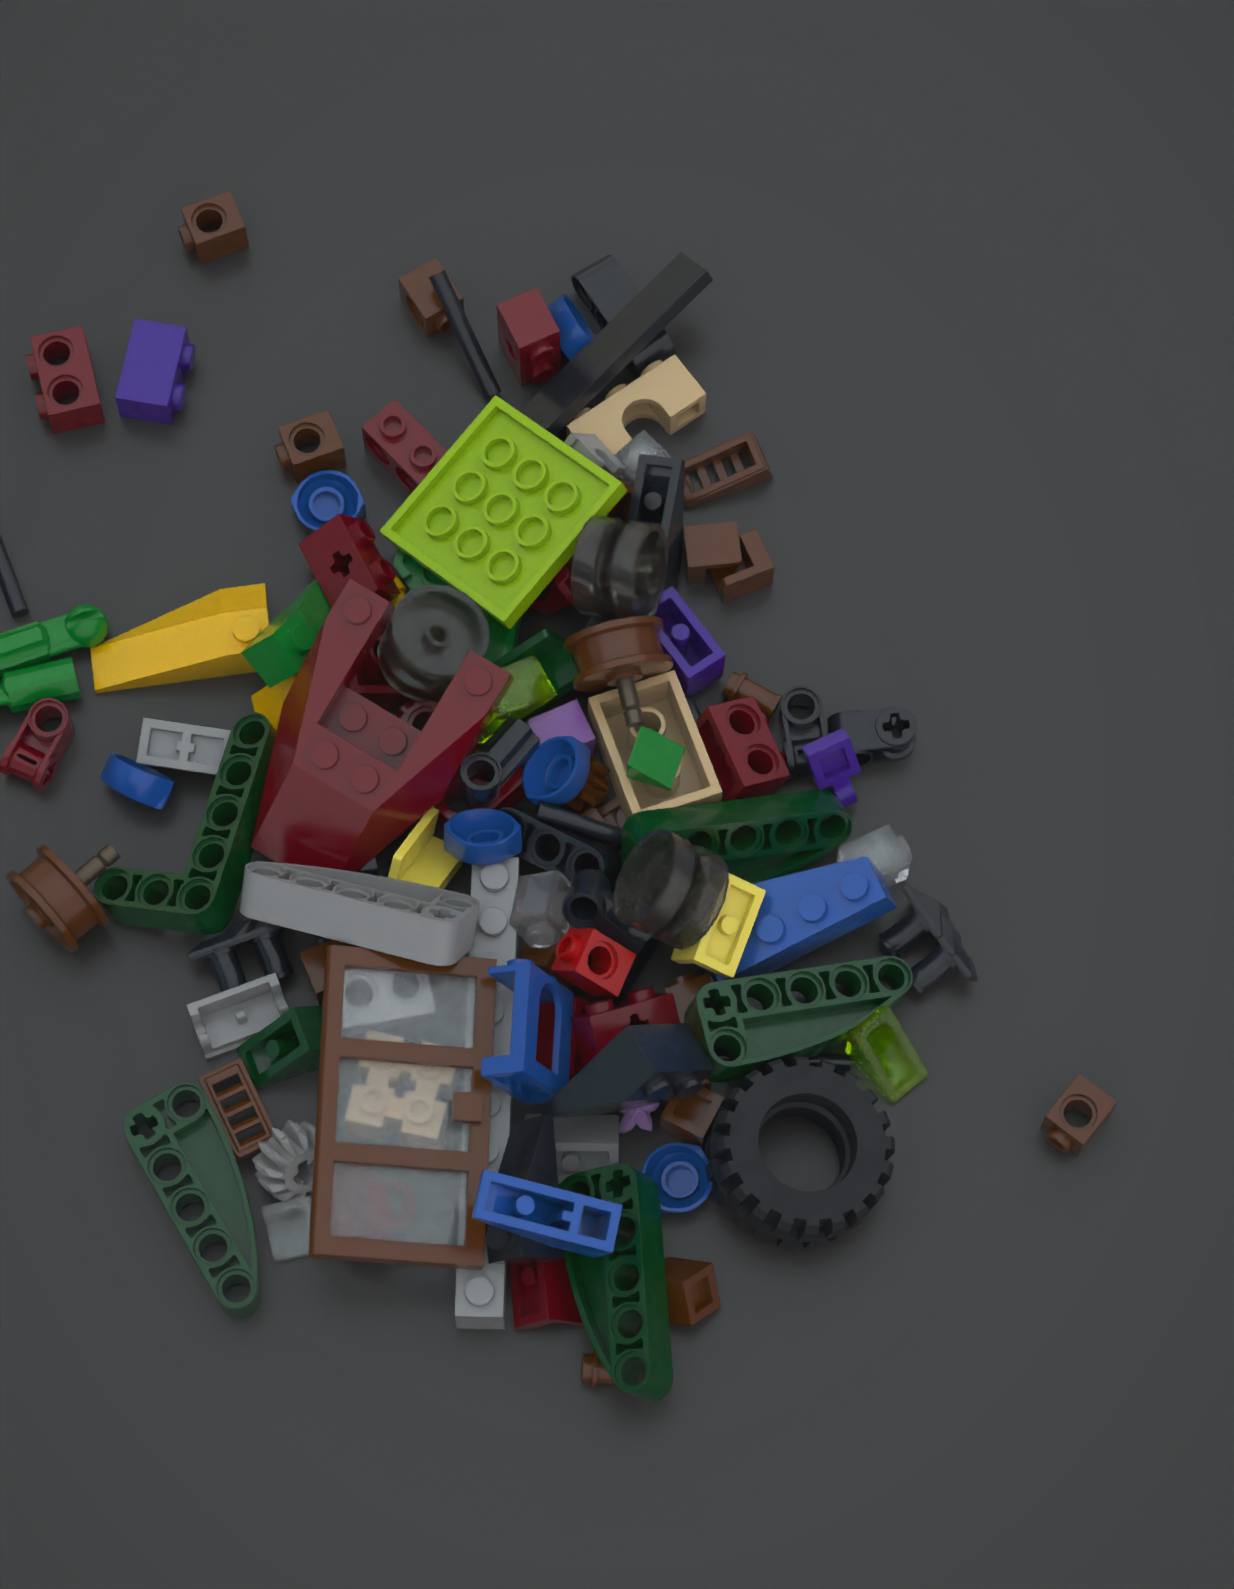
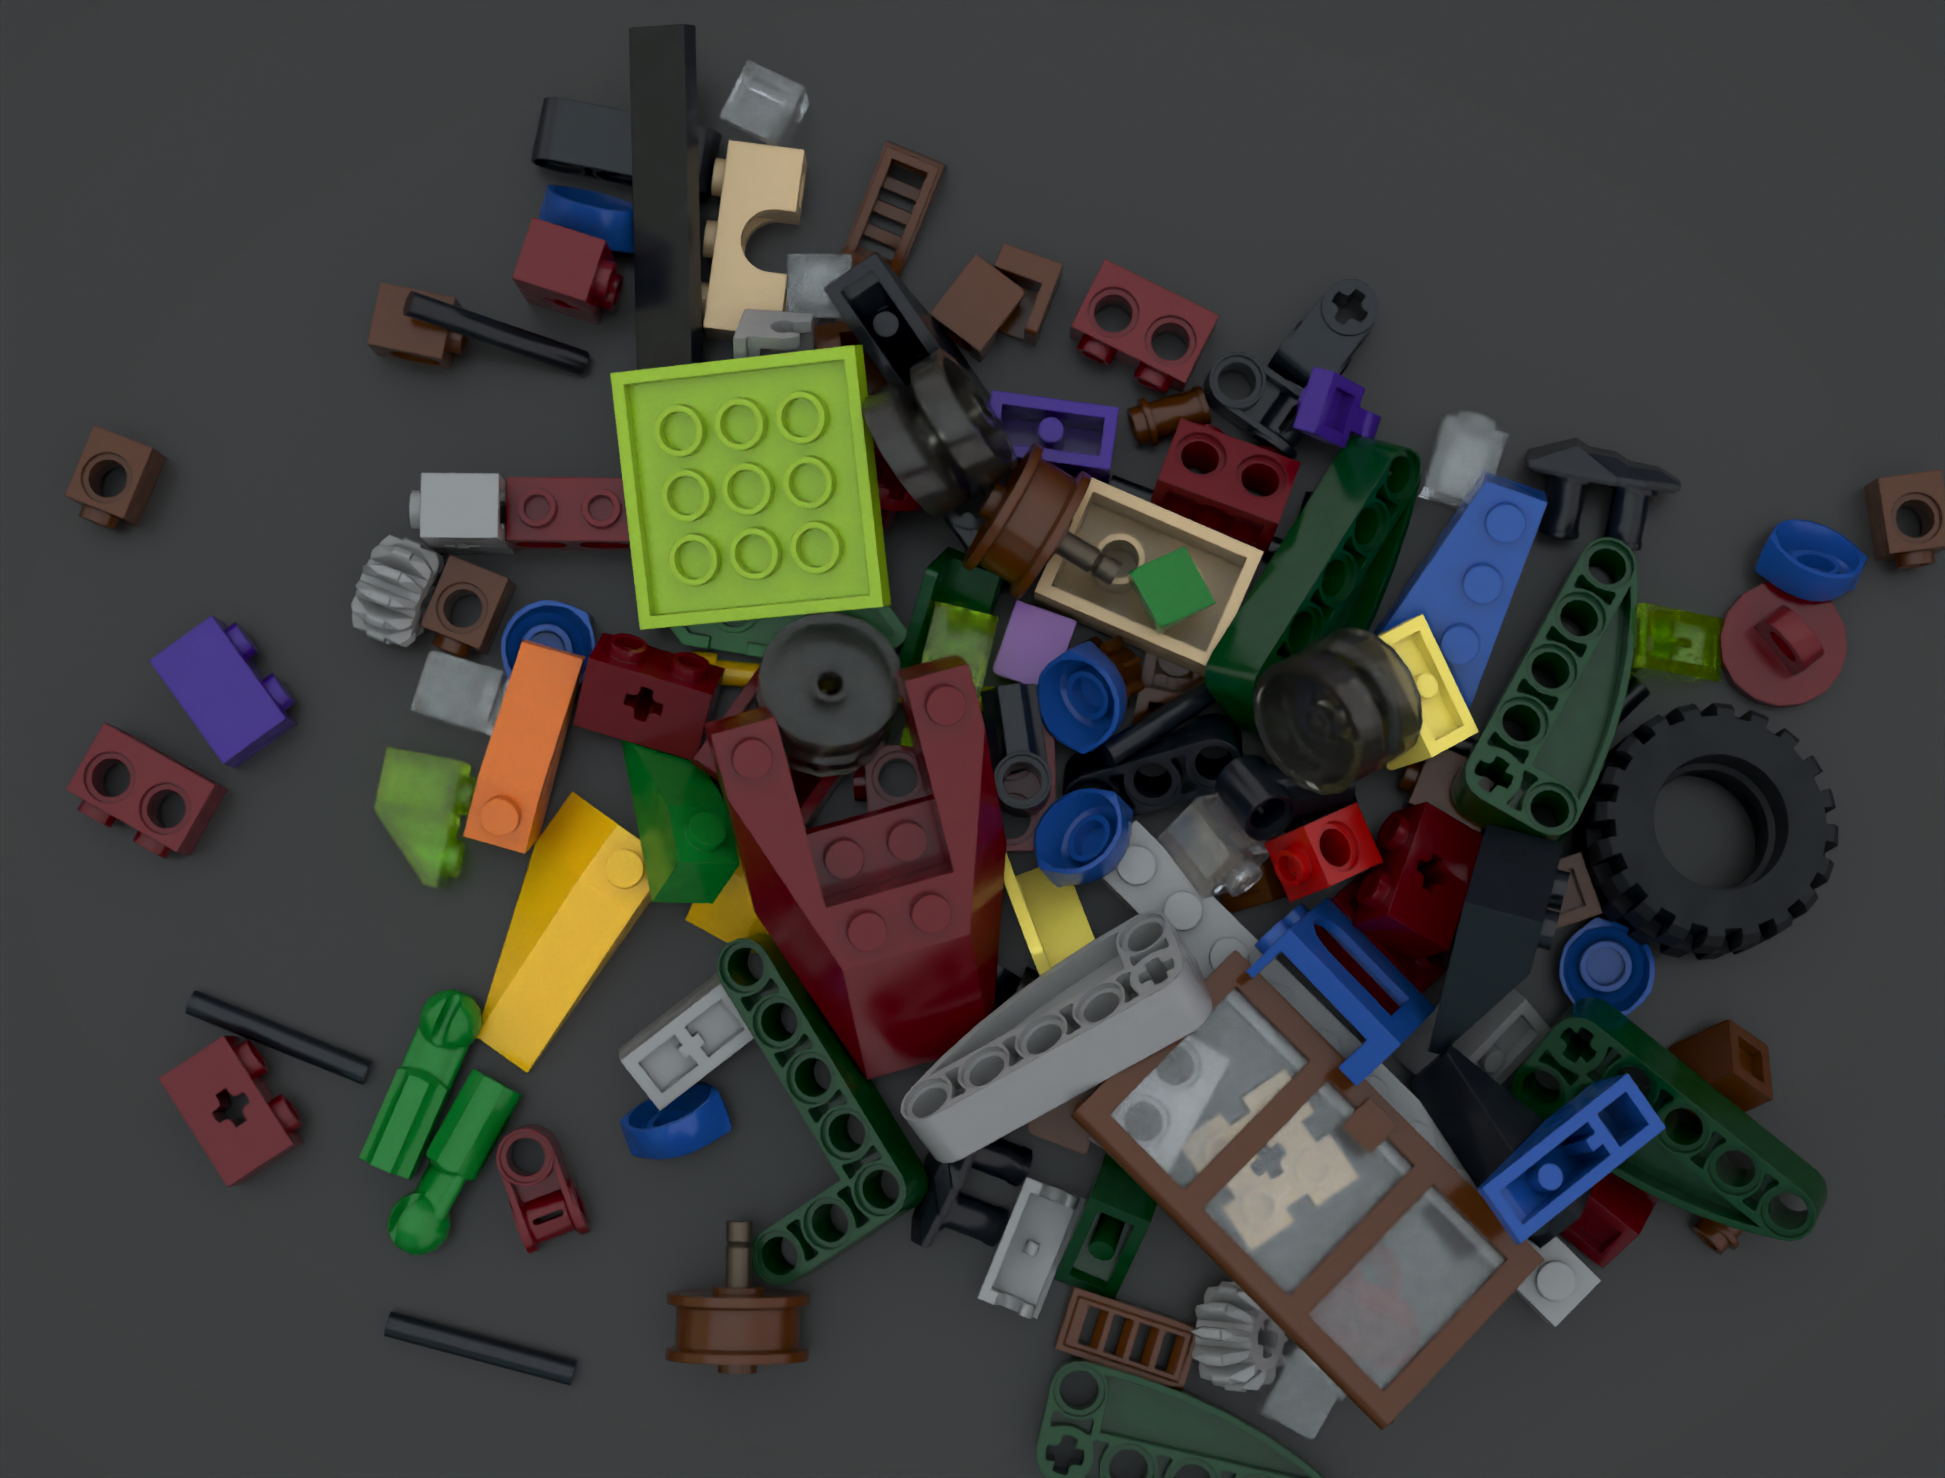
camera: 40 degrees left, 15 degrees up
(184, 517) = (422, 809): none -> clear neon green slope
(260, 534) = (525, 748): none -> orange slope
(262, 482) = (460, 693): none -> clear panel
(284, 400) = (396, 590): none -> light grey gear
(353, 393) = (461, 513): none -> light grey brick
(711, 359) = (765, 105): none -> clear panel
(792, 639) = (1151, 313): none -> dark red brick
(945, 1116) = (1781, 646): none -> dark red tile
(1002, 1085) = (1810, 561): none -> blue hat

